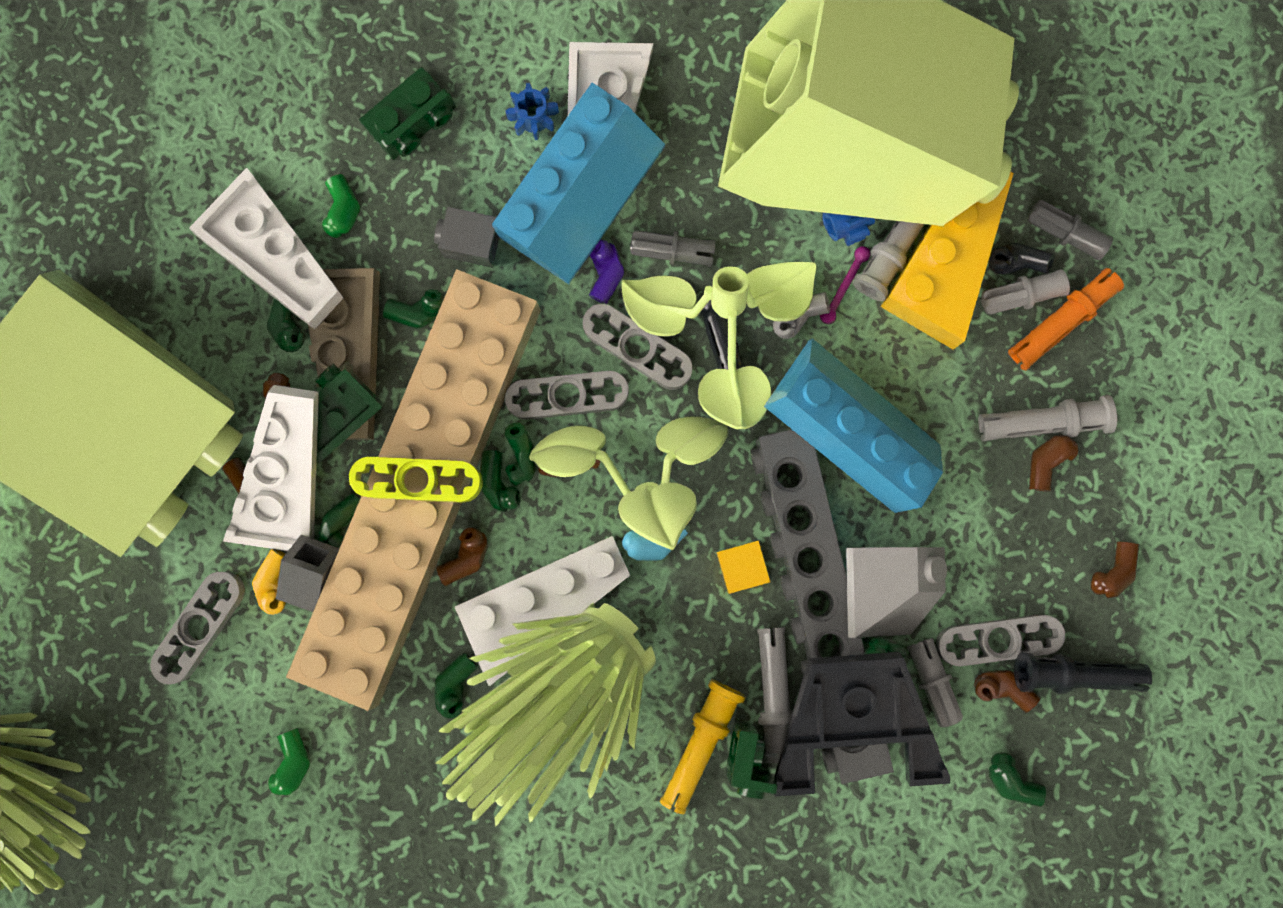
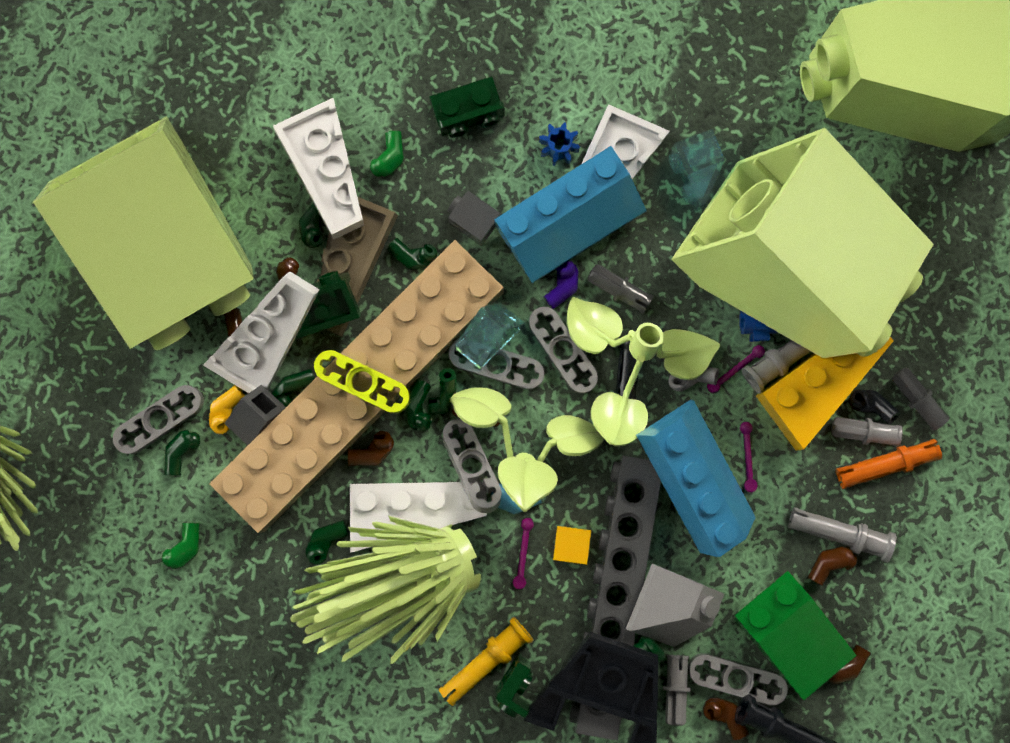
camera: 20 degrees right, 0 degrees up
(233, 653) = (177, 448): none -> dark green arm
(542, 363) = (488, 333): none -> clear light blue slope
(601, 553) = (490, 483): none -> light grey beam
(700, 634) = (519, 581): none -> magenta hinge
(703, 68) = (699, 164): none -> clear light blue slope
(775, 692) = (556, 646): light grey pin -> none
(918, 410) = (750, 484): none -> magenta hinge
(1045, 561) = (795, 635): none -> green slope

